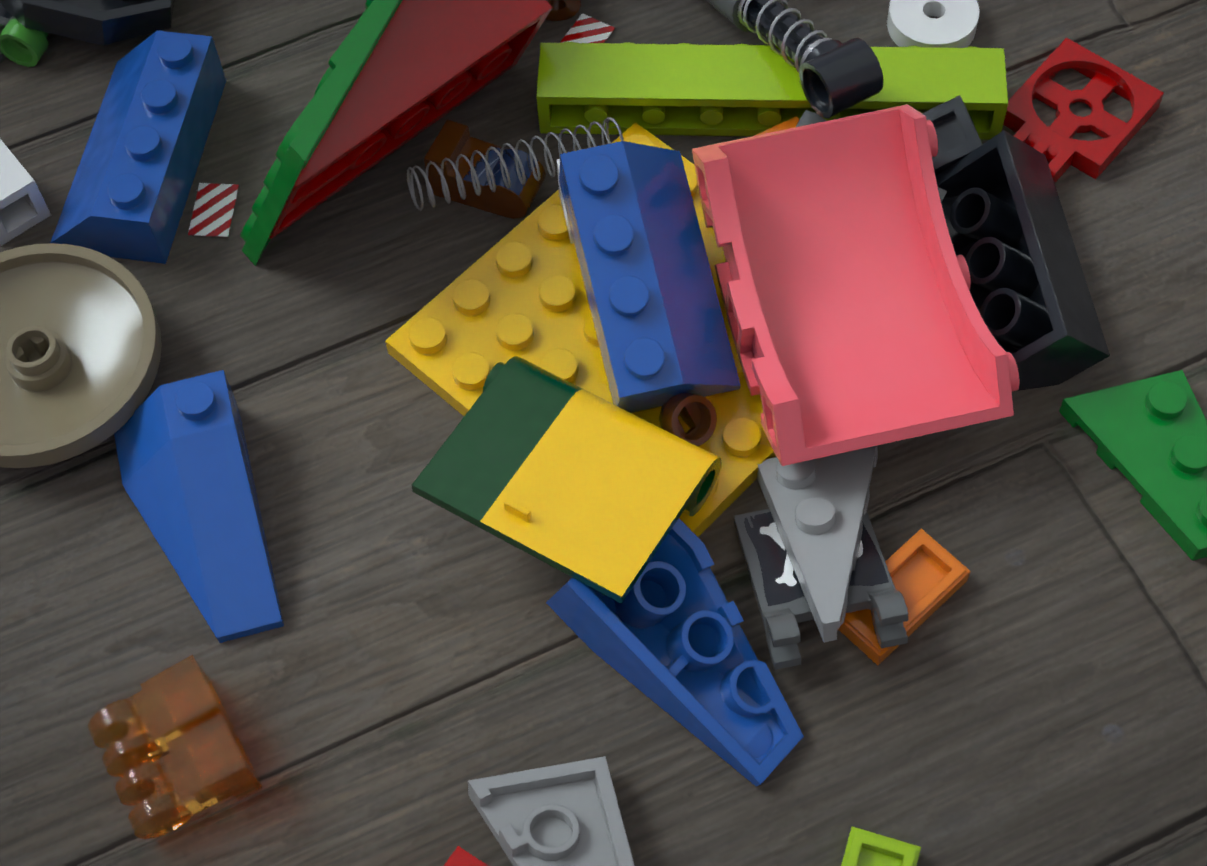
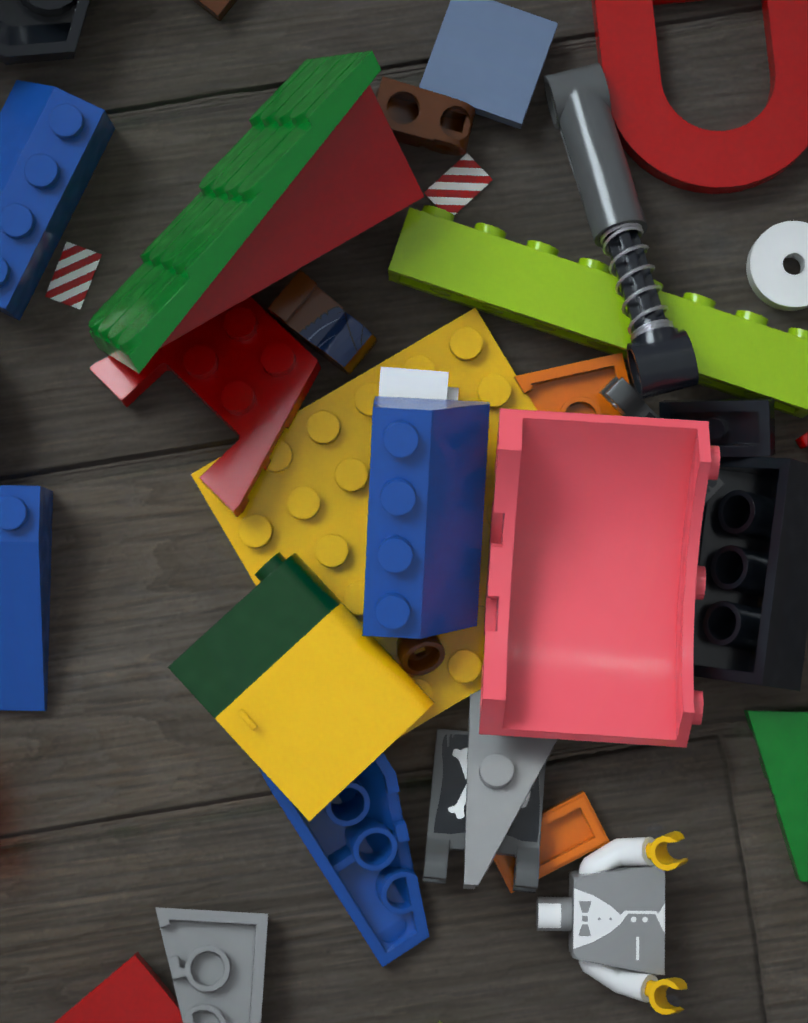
camera: 15 degrees right, 25 degrees up
(392, 238) = (243, 372): none -> red wing
(502, 163) = (347, 345): light grey piece -> none
(1012, 635) = (619, 917): none -> torso

